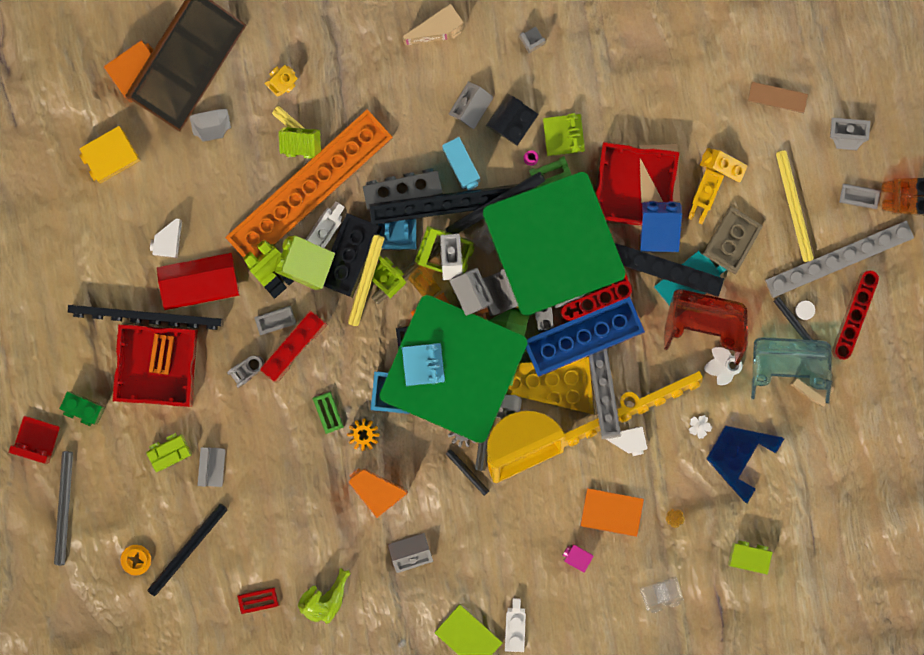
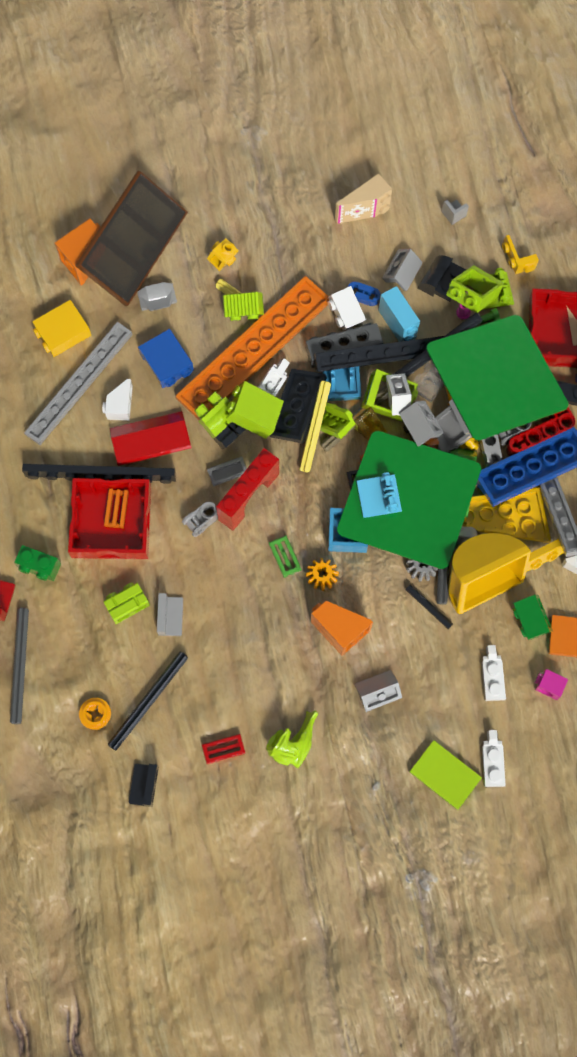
camera: 10 degrees left, 15 degrees down
(126, 216) = (78, 383): none -> light grey plate
(180, 630) = (143, 785): none -> black panel
(217, 195) = (166, 358): none -> blue panel
(407, 150) = (346, 308): none -> white brick
(429, 126) = (364, 292): none -> blue beam
(523, 545) = (493, 675): none -> white hinge
(545, 123) = (474, 278): none -> lime window
(566, 491) = (532, 617): none -> green brick
(601, 108) = (520, 265): none -> yellow bracket

